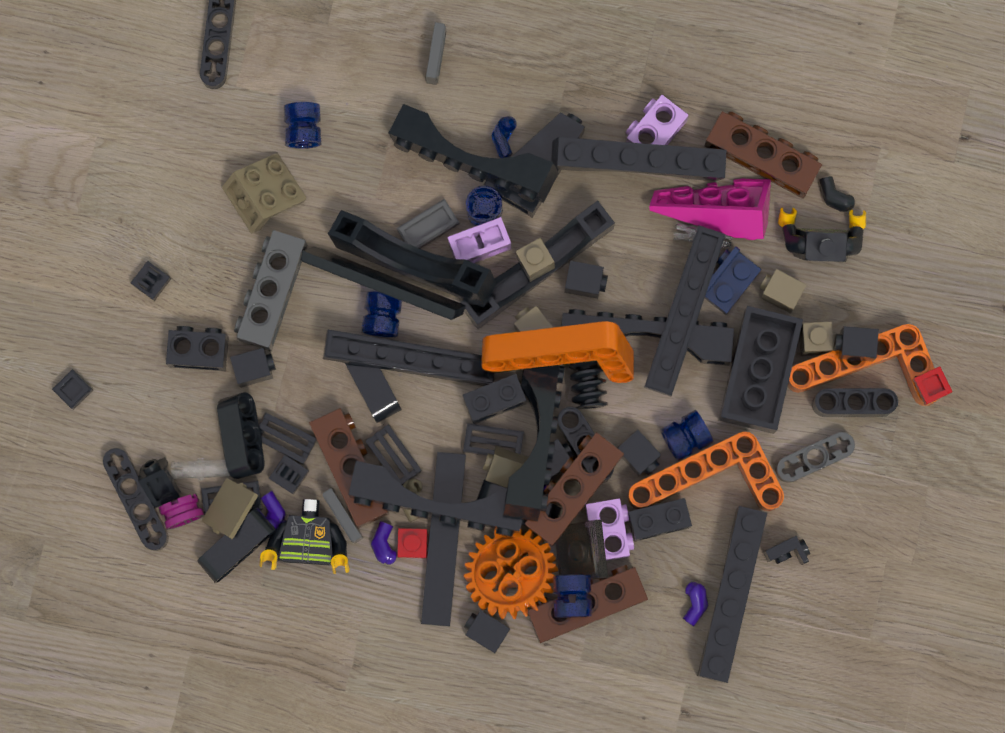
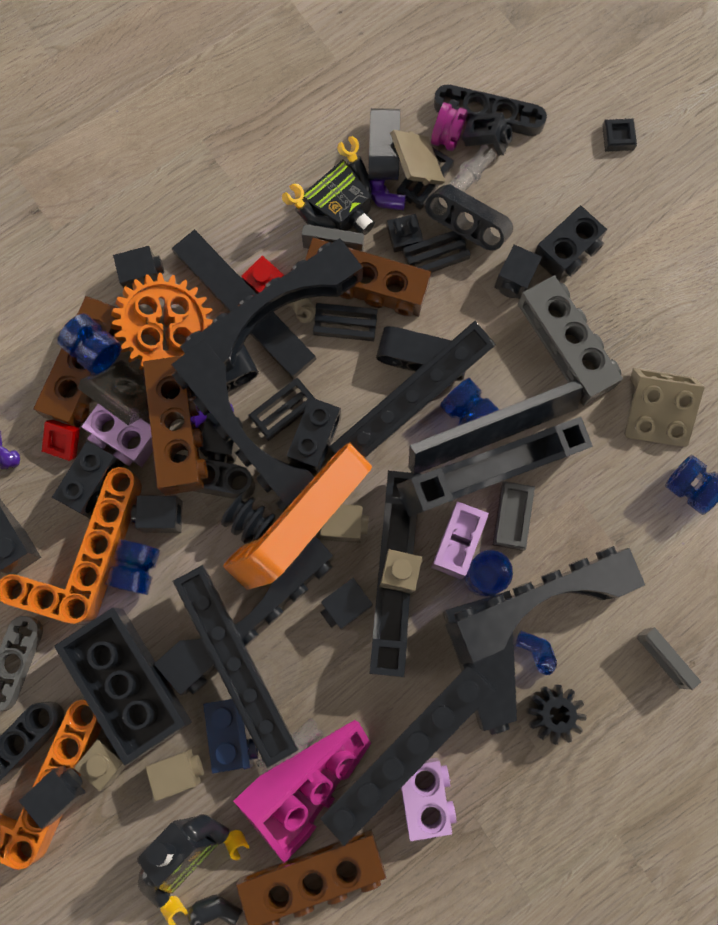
camera: 130 degrees right, 5 degrees down
(150, 280) = (659, 259): black tile -> none
(381, 546) = (276, 248): dark purple arm -> none
(502, 465) = (249, 393): dark tan brick -> none
(541, 86) = (556, 700): none -> black gear
(651, 567) = (60, 439): none -> red plate

